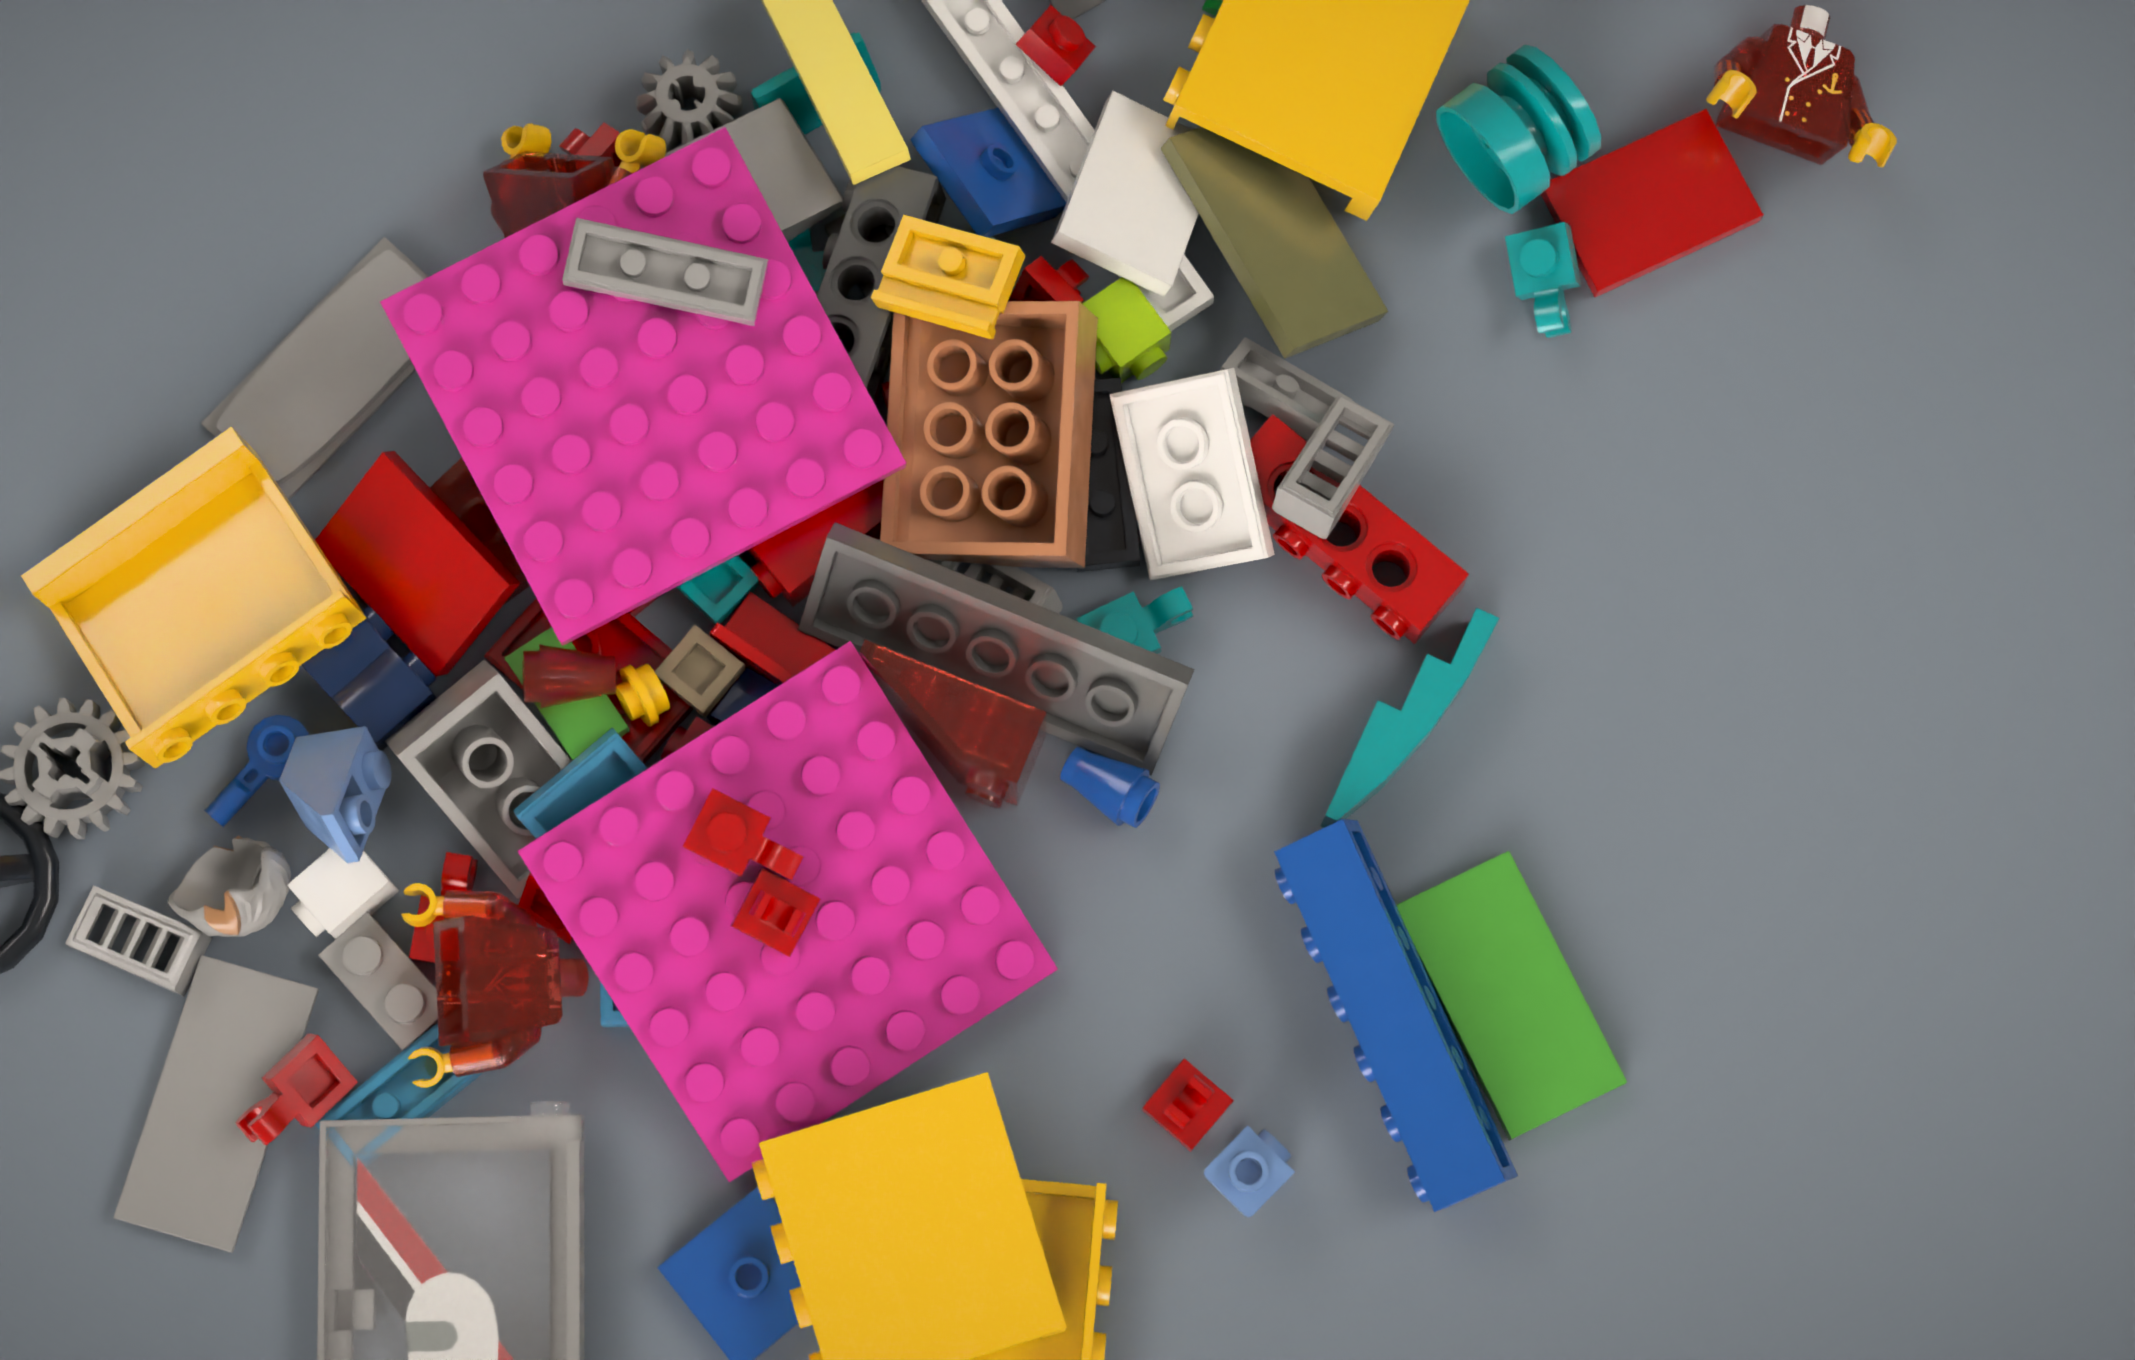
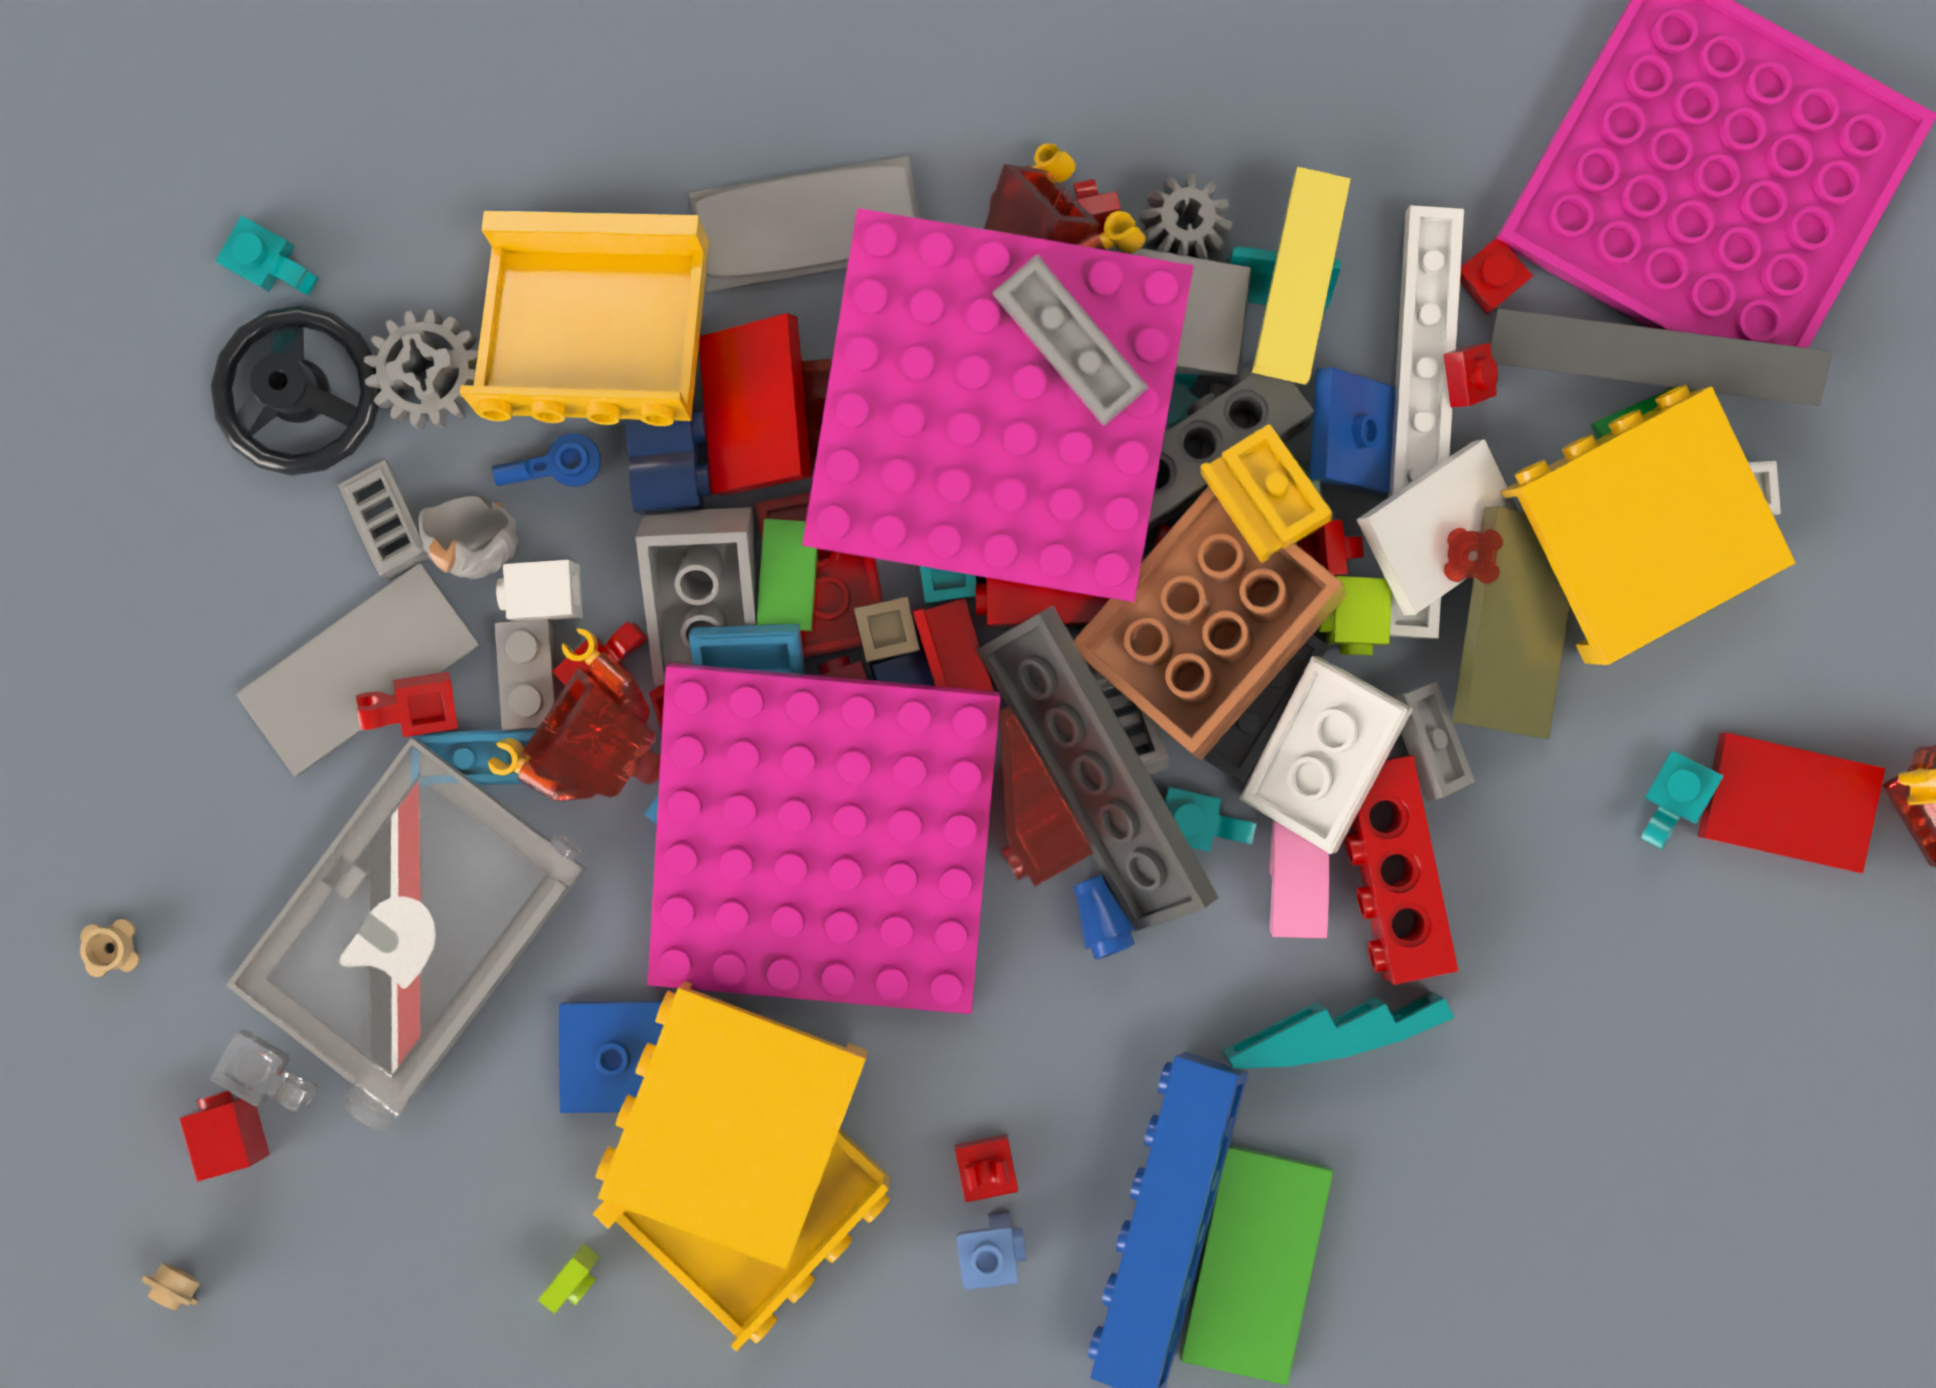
camera: 40 degrees right, 10 degrees up
(337, 787) = (585, 523): medium blue slope -> none
(566, 676) = (793, 566): clear red cone -> none
(642, 694) = (836, 616): yellow plate -> none
(732, 835) = (817, 770): red plate -> none
(775, 912) = (807, 841): red tile -> none
(1164, 190) = (1461, 544): none -> clear red plate
(1266, 613) = (1298, 886): none -> bright pink slope
(1311, 500) = (1392, 839): light grey slope -> none
(1518, 128) = (1747, 687): teal wheel -> none

